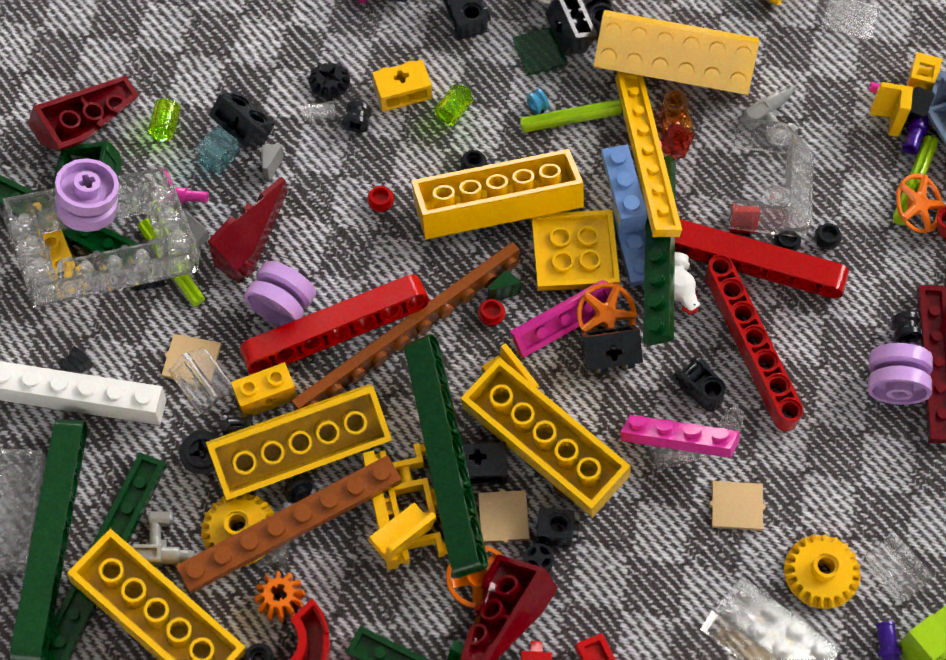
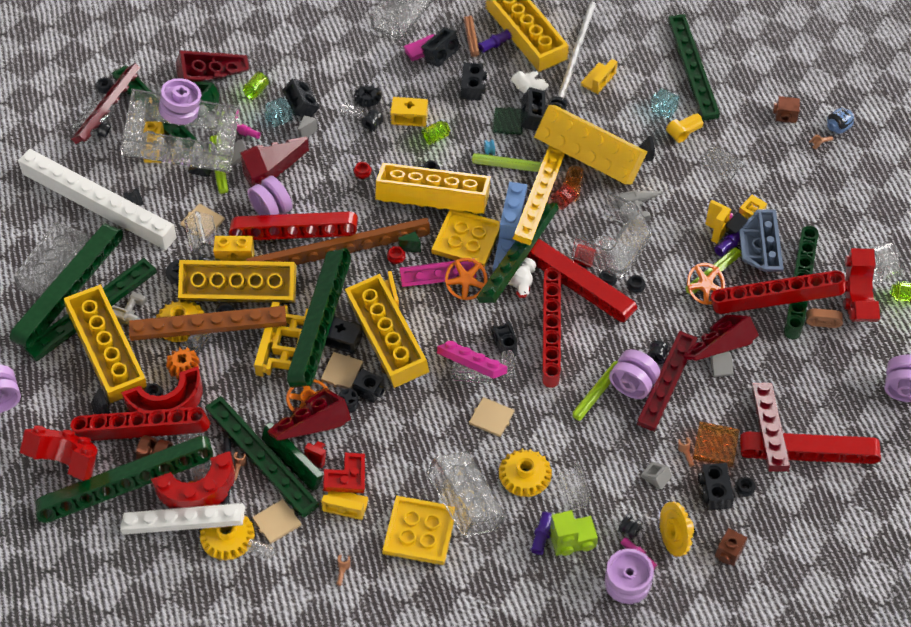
camera: 25 degrees right, 10 degrees down
(401, 532) = (271, 351): yellow panel -> none
(597, 342) = (448, 291): black brick -> none
(746, 26) = (648, 145): none -> black slope
(855, 413) = (593, 395): none -> lime axle

